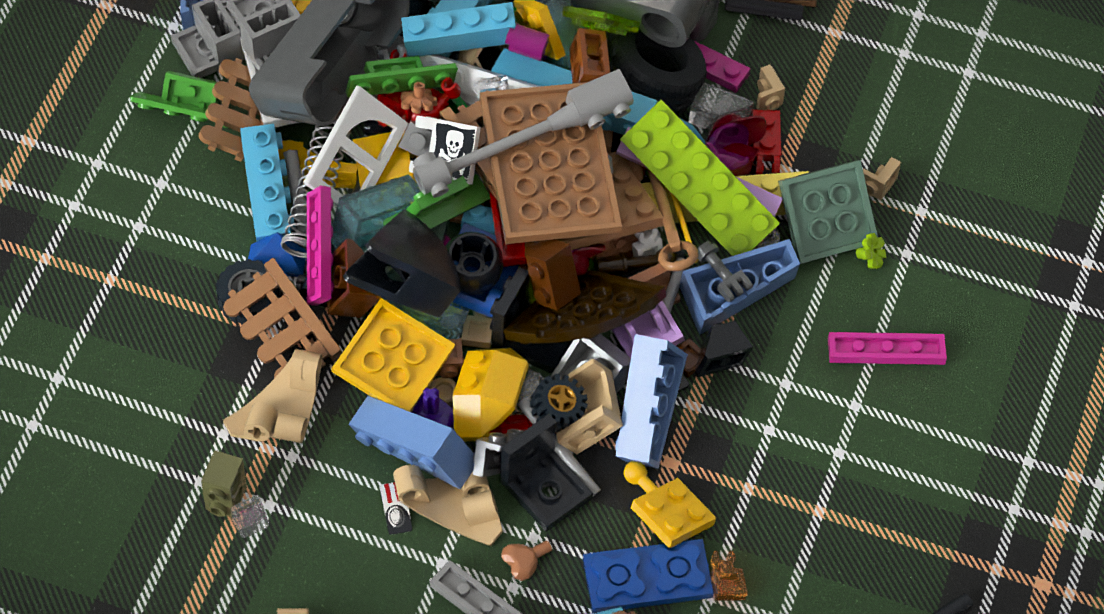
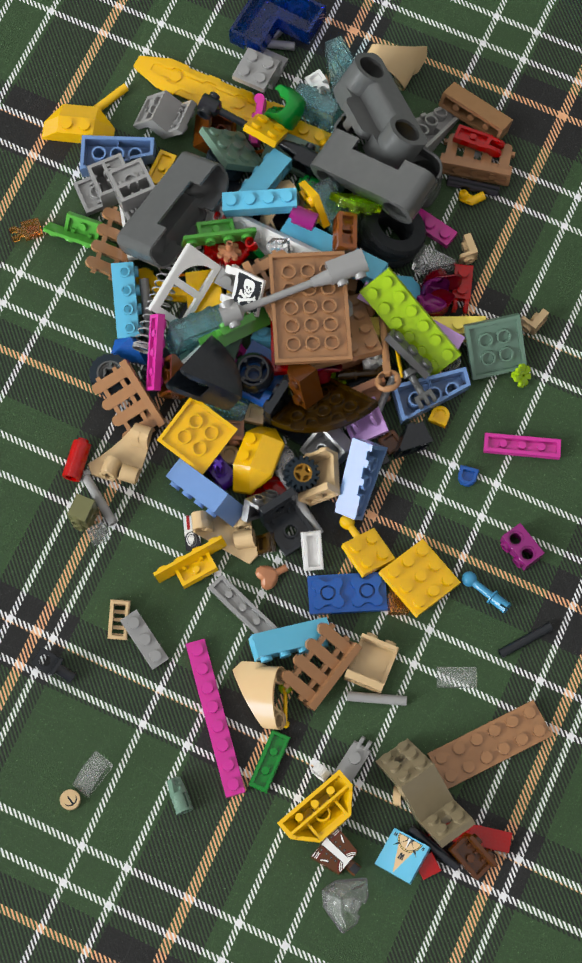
camera: 10 degrees right, 15 degrees up
(107, 101) = (29, 229): none -> clear orange plate
(206, 413) = (76, 460): none -> red brick
(252, 476) = (99, 499): none -> light grey piece
(402, 550) = (194, 565): none -> yellow bracket
(513, 511) = (266, 543): none -> dark brown tile
(586, 515) = (312, 550): none -> white tile
(704, 222) = (409, 353): none -> dark grey plate
(757, 317) = (439, 416): none -> yellow tile
(757, 543) = (419, 578): none -> yellow plate
(763, 26) = (470, 199): none -> yellow arm
(810, 396) = (467, 475): none -> blue tile
(834, 542) = (470, 579): none -> dark azure pin
(913, 484) = (526, 544): none -> magenta brick

